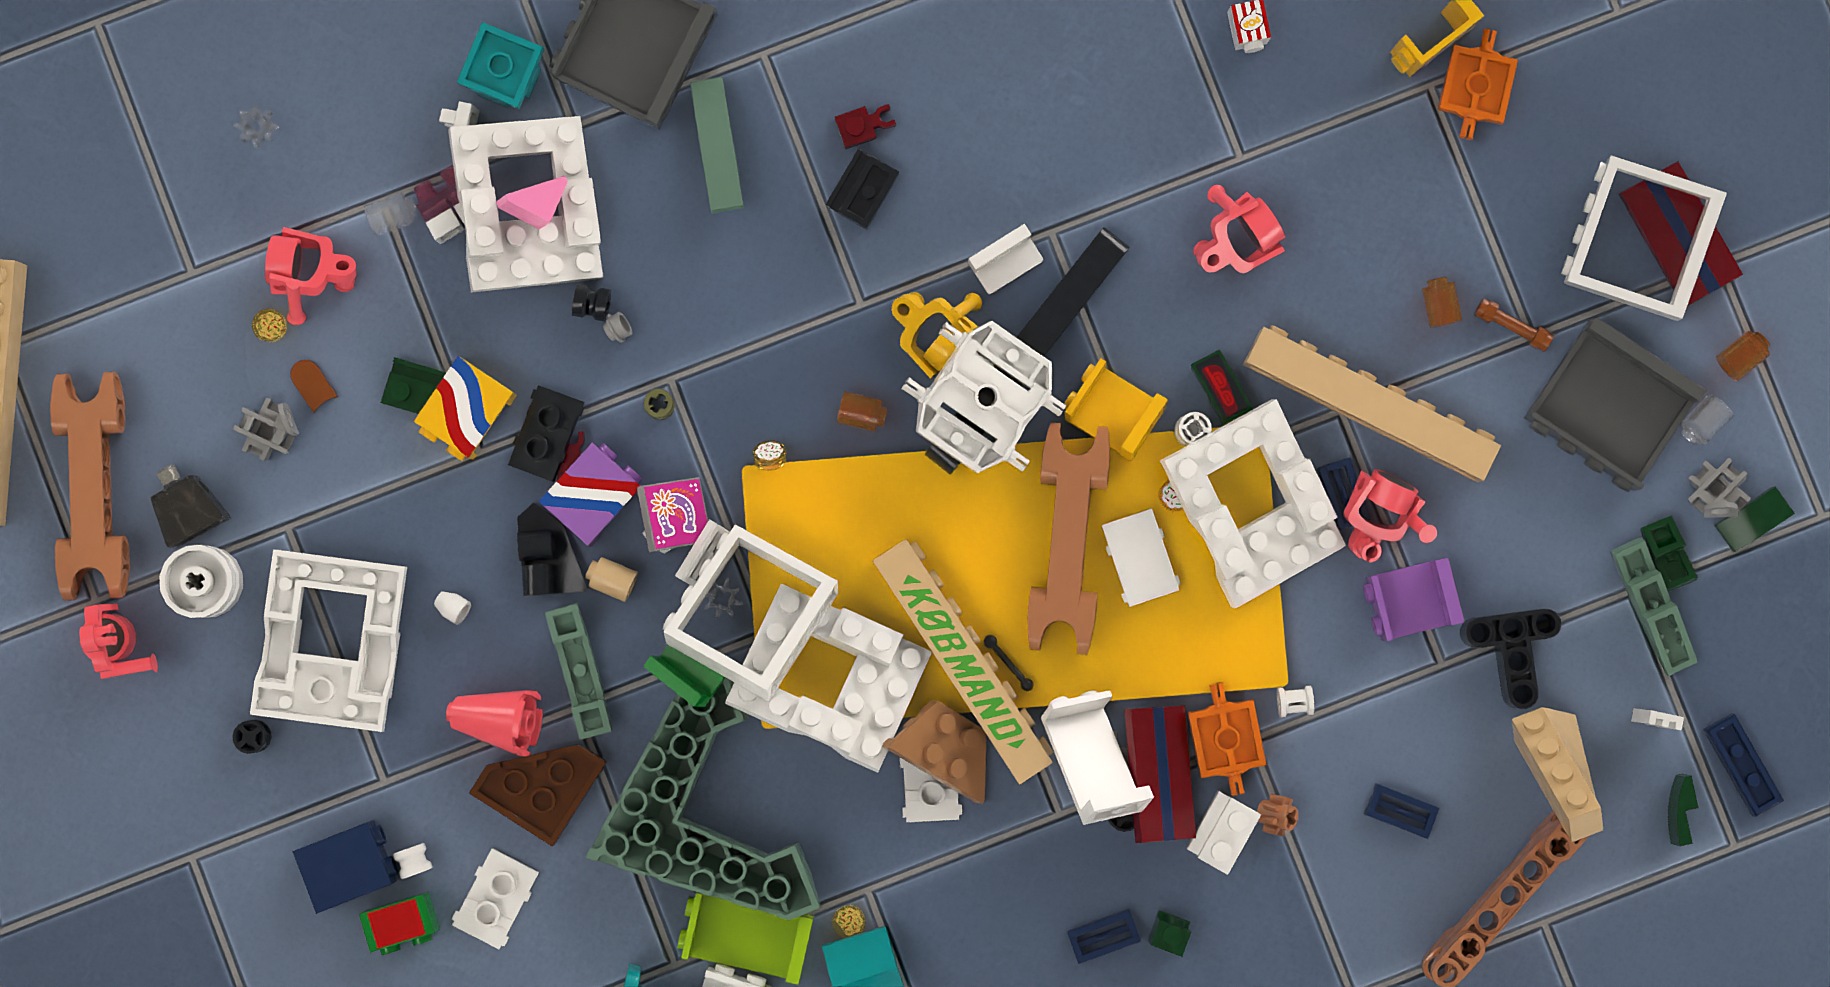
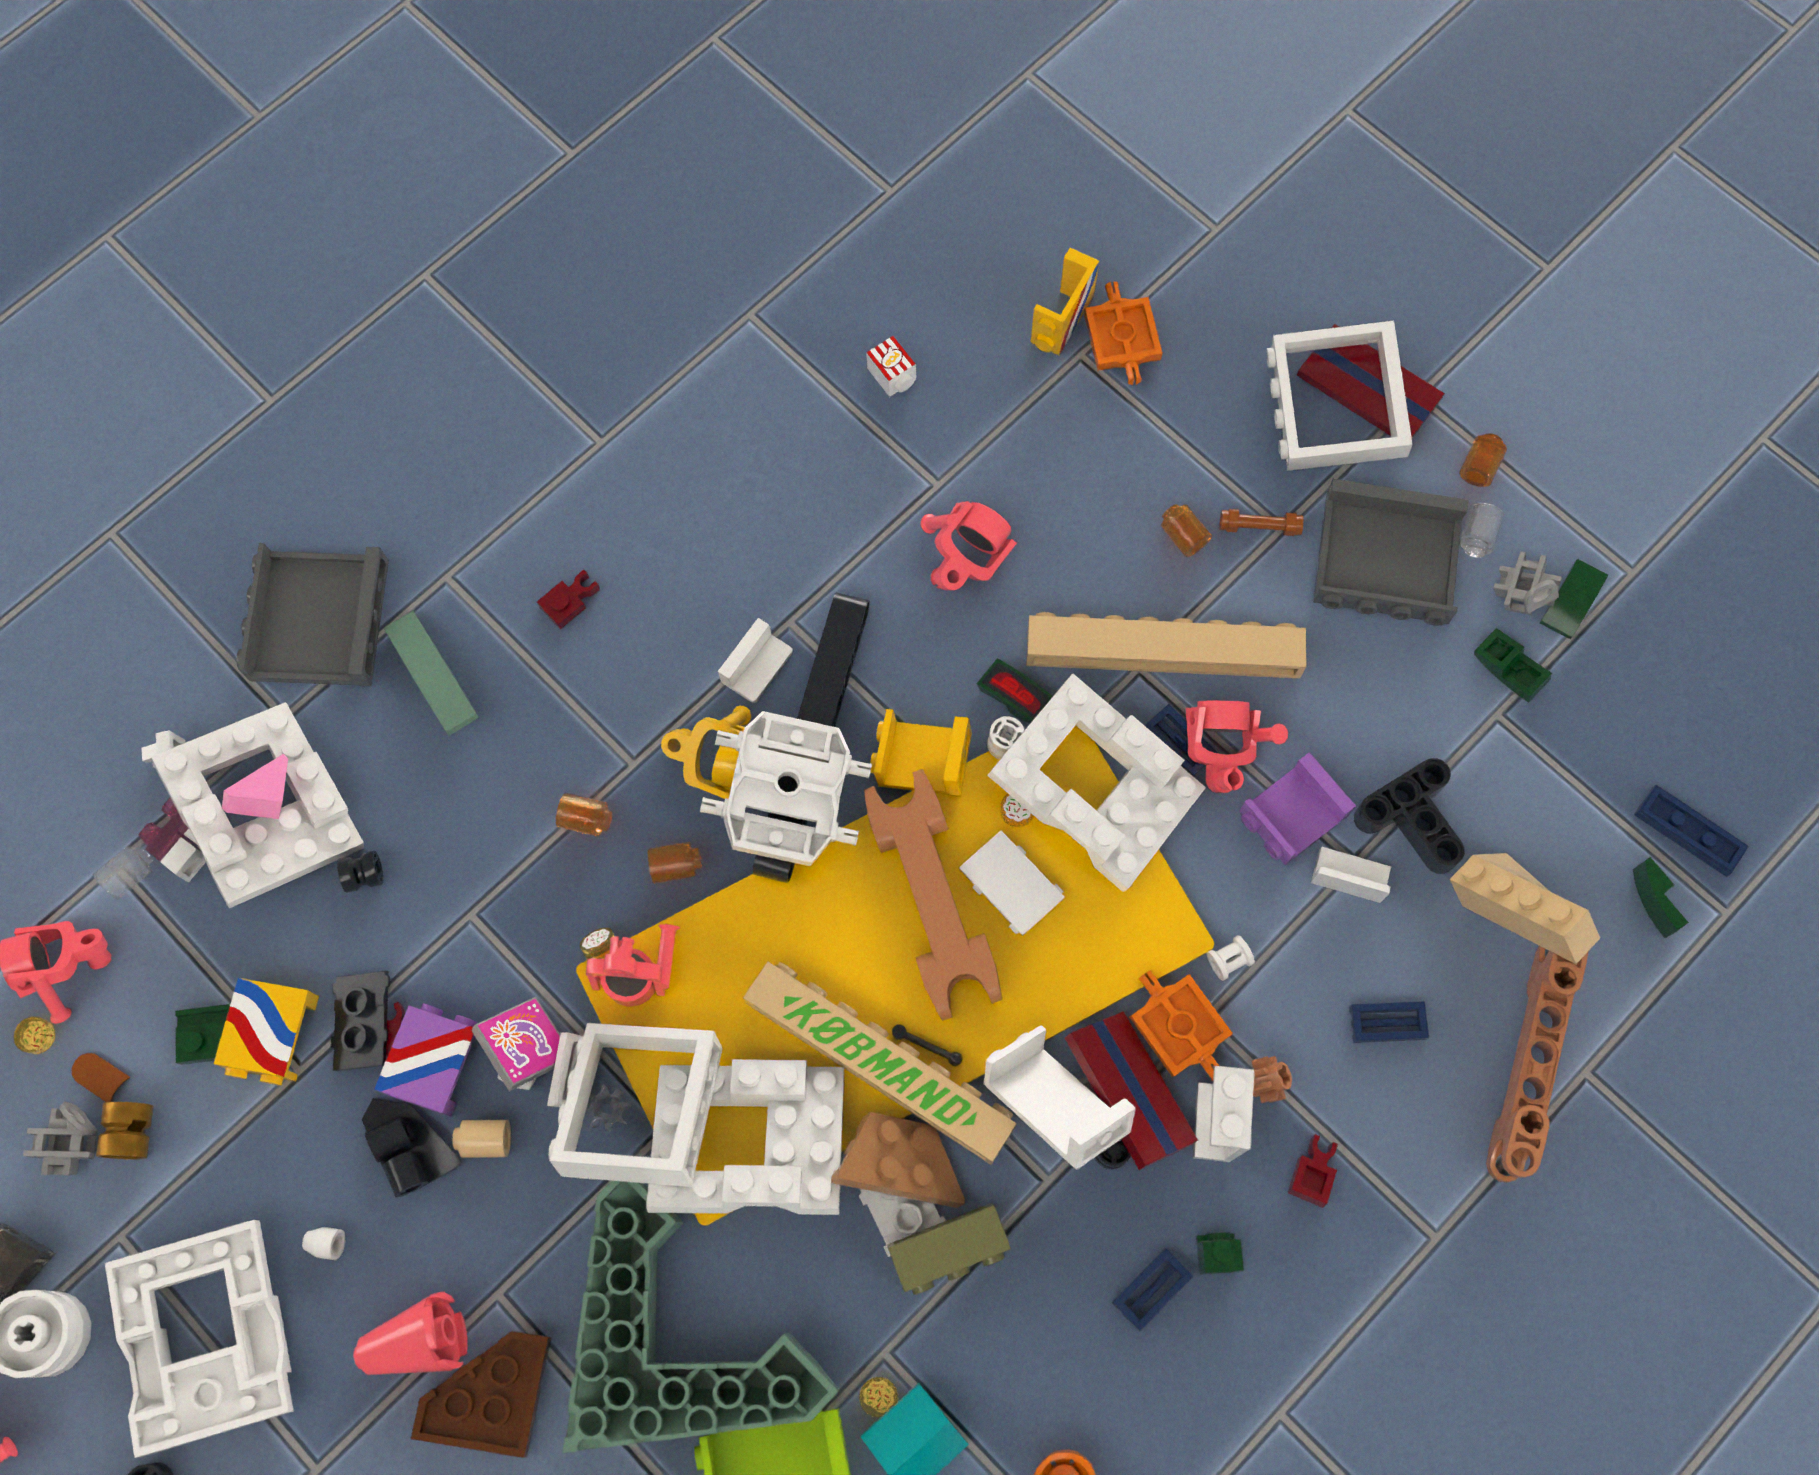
camera: 20 degrees left, 15 degrees down
(321, 444) = (124, 1130): none -> pearl gold wheel
(501, 67) = (189, 686): teal panel -> none
(579, 671) = (484, 1250): sand green slope -> none
(617, 327) = (396, 885): light grey plate -> none
(662, 413) = (474, 950): olive bush -> none
(685, 676) = (594, 1200): green panel -> none
(787, 497) = (630, 974): none -> coral piece
(800, 335) = (583, 814): none -> clear orange brick
(862, 189) = (589, 655): black plate -> none
(954, 834) = (949, 1248): none -> olive brick
(1275, 907) = (1312, 1176): none -> dark red plate
(1433, 675) = (1351, 875): none -> white panel
(1653, 606) = (1525, 719): sand green slope -> none
(1657, 719) = (1583, 819): white tile -> none

